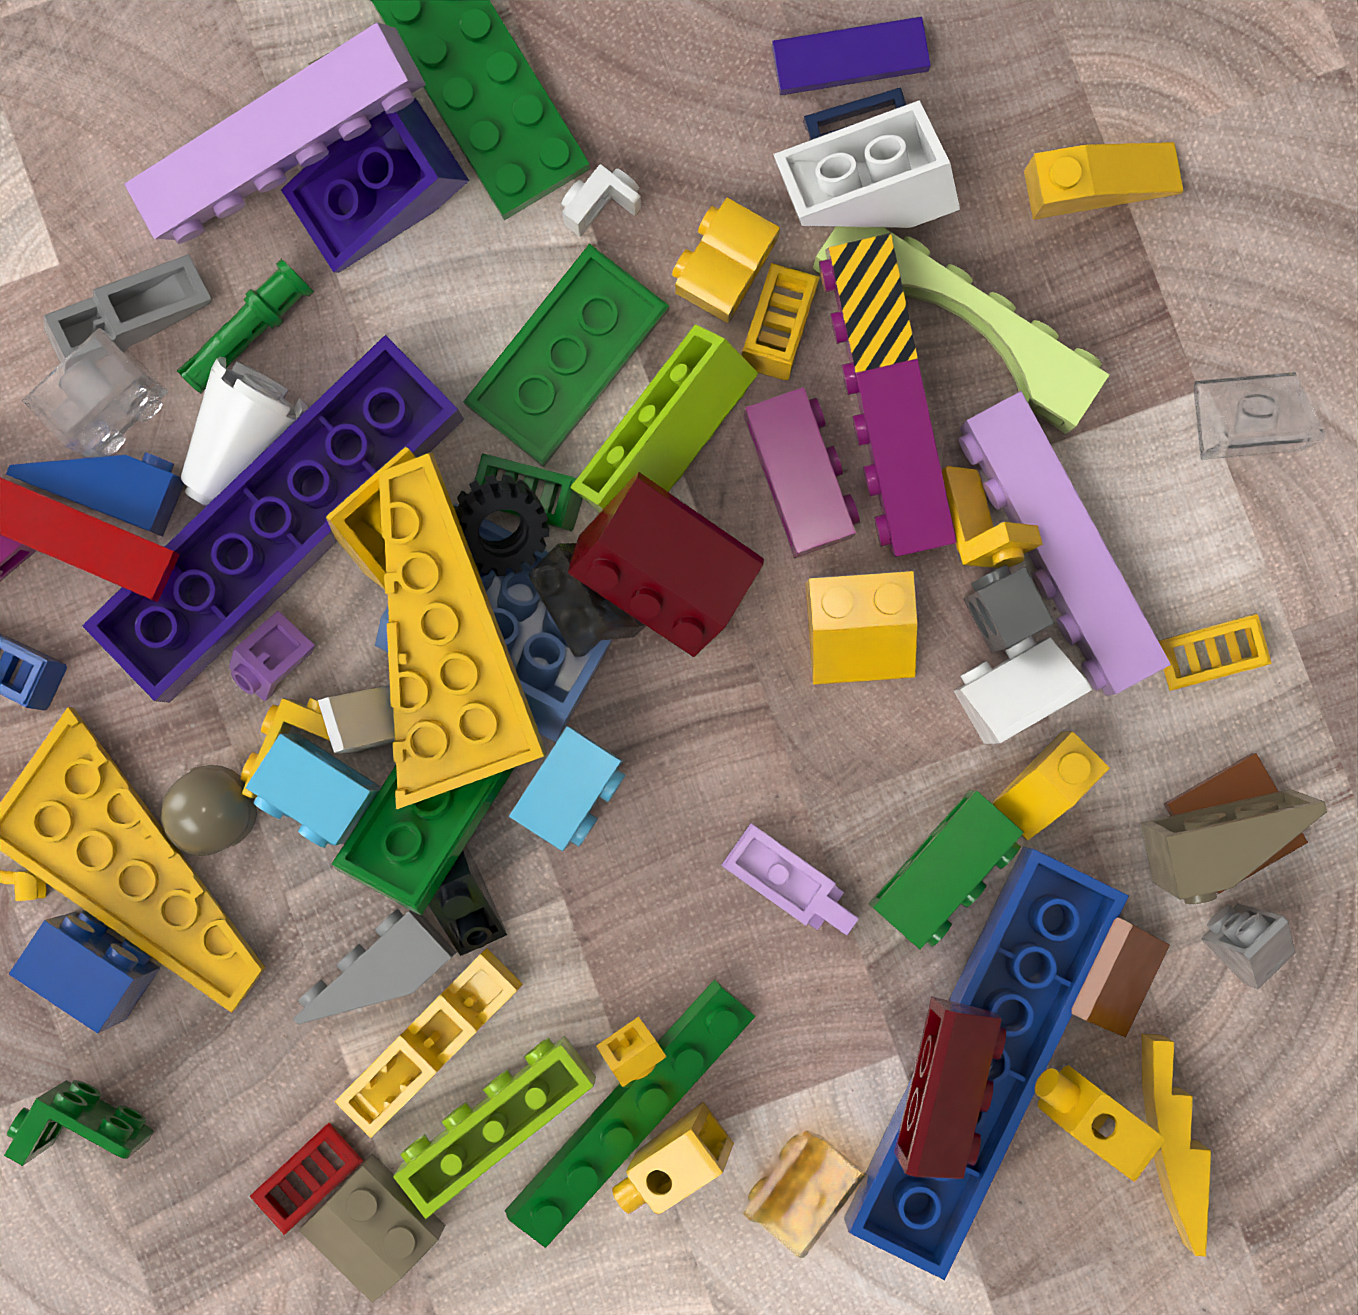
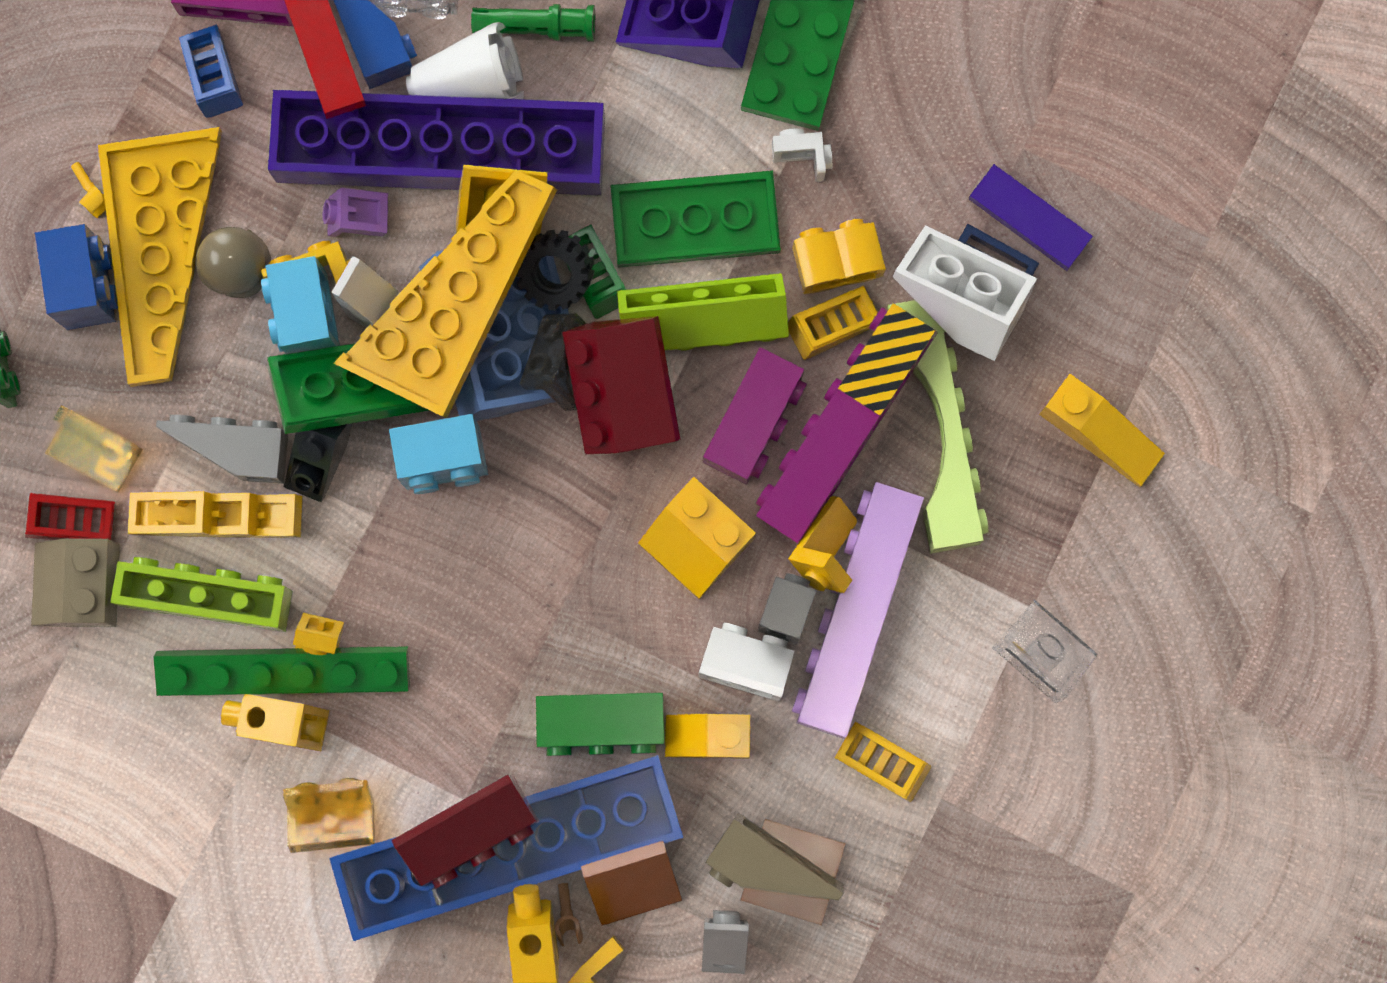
camera: 50 degrees right, 5 degrees down
(261, 1098) = (92, 449): none -> clear yellow panel
(788, 881) = (506, 635): lavender hinge -> none
(1089, 1061) = (567, 920): none -> medium nougat hand

